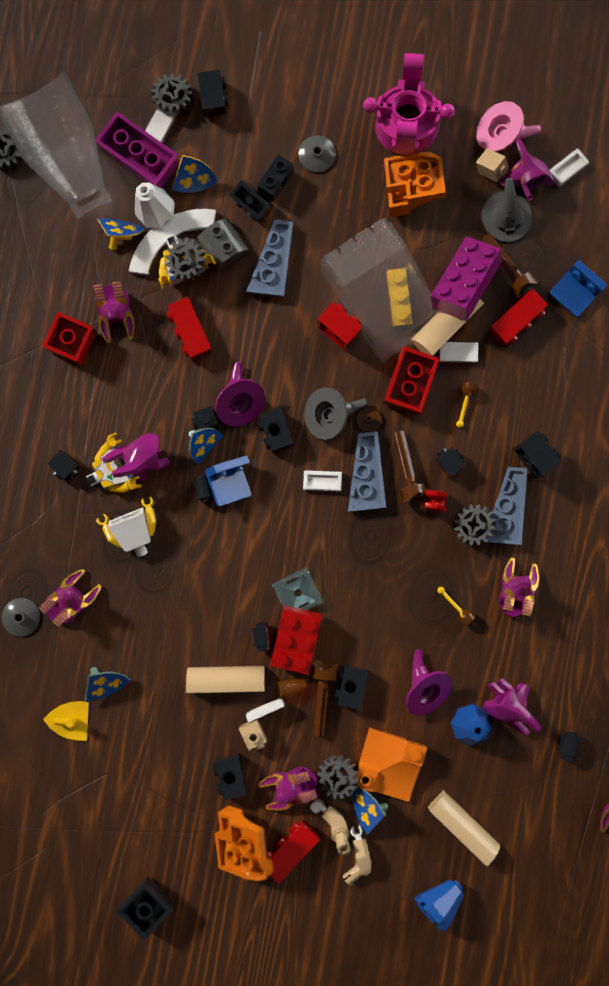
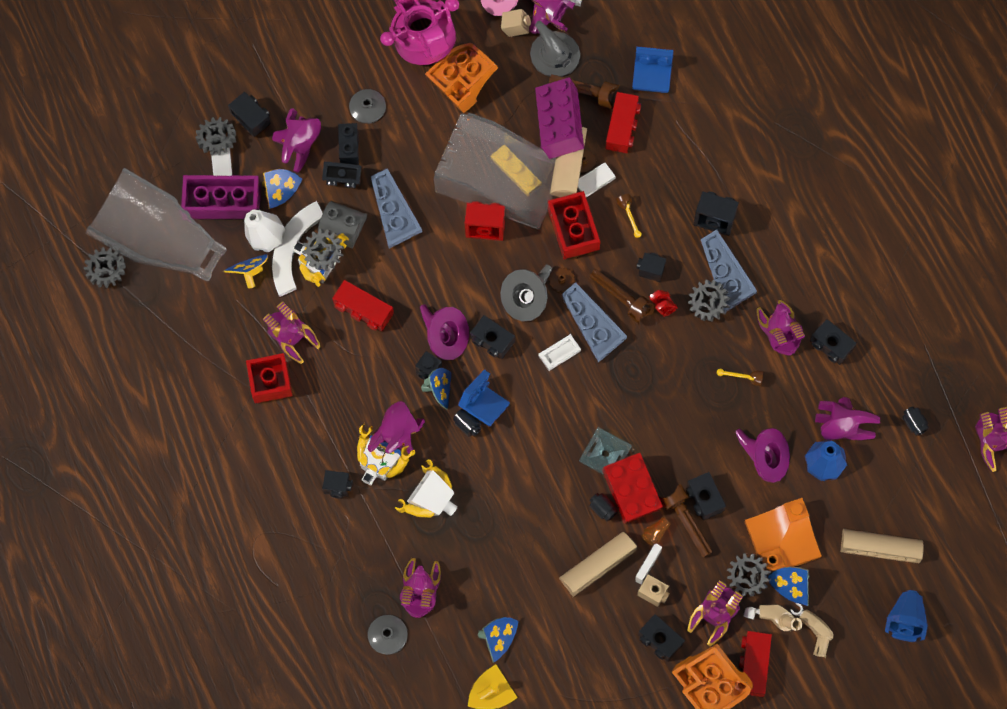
camera: 30 degrees left, 15 degrees down
(236, 142) = (297, 138): none -> magenta piece
(559, 641) = (828, 332): none -> black brick

